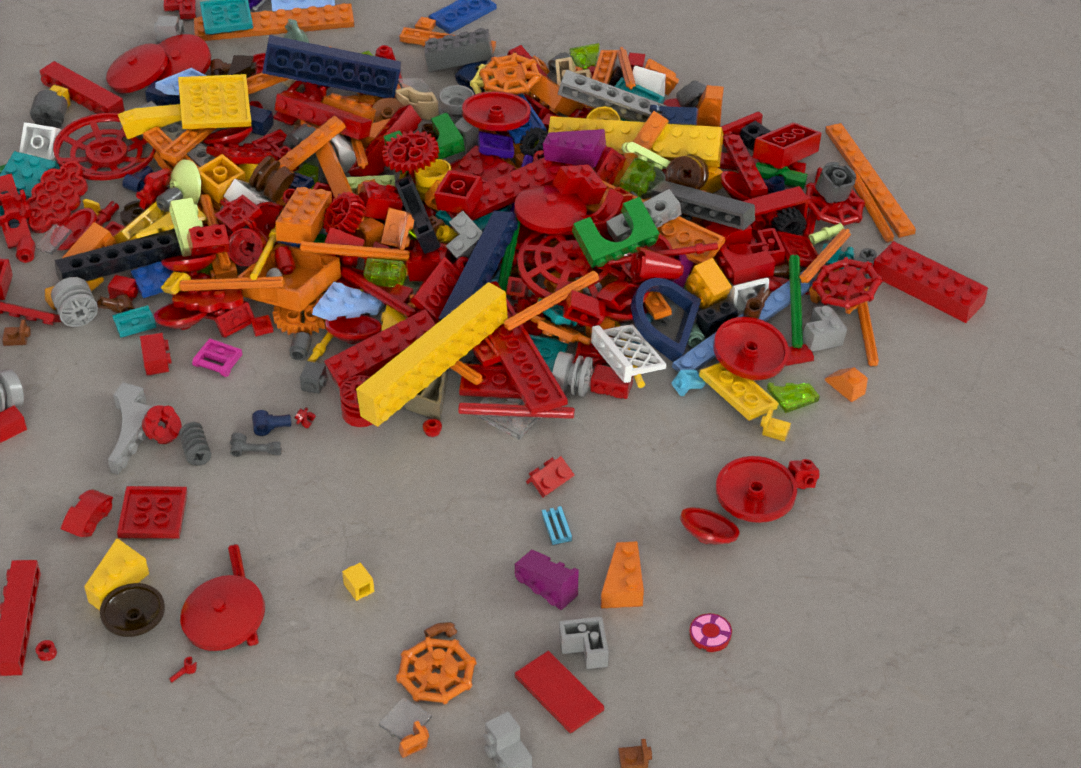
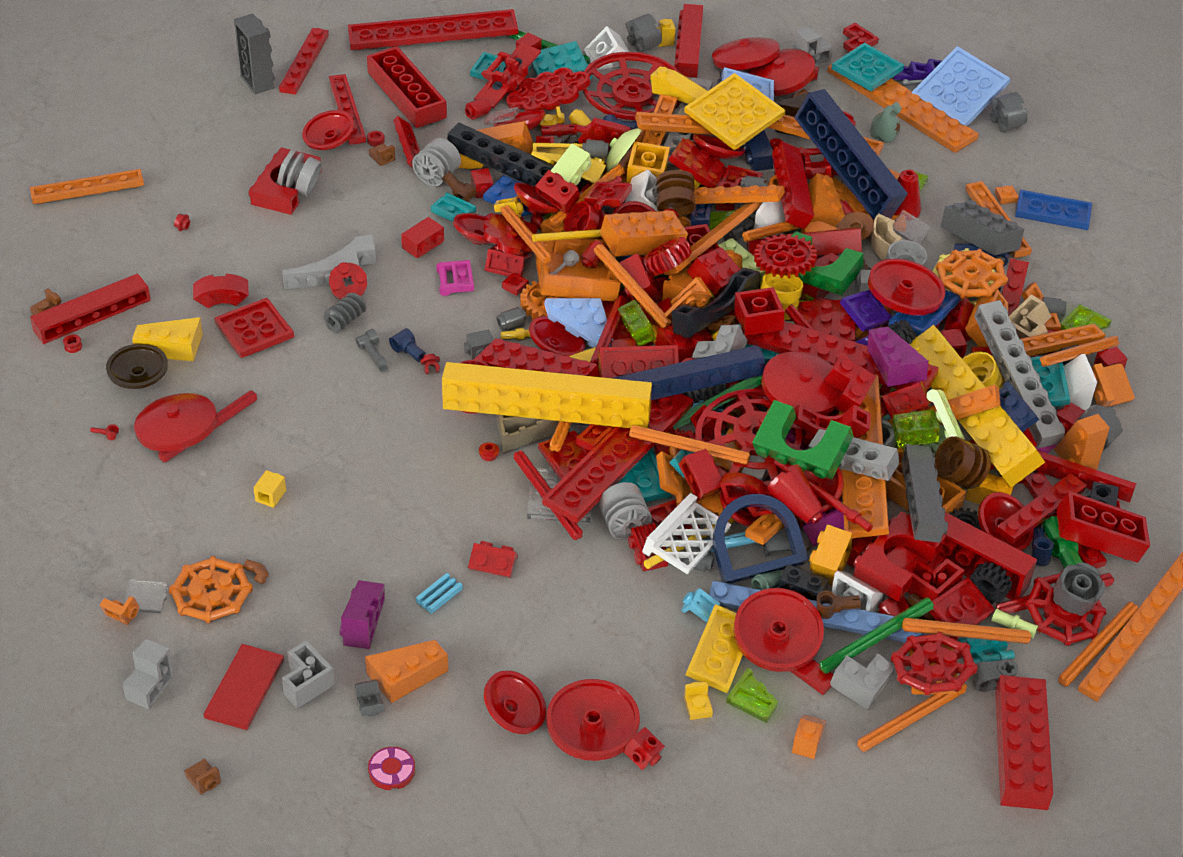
camera: 55 degrees right, 0 degrees up
(106, 196) = (579, 117): none -> yellow cone
(636, 615) = (369, 698): none -> dark grey bracket

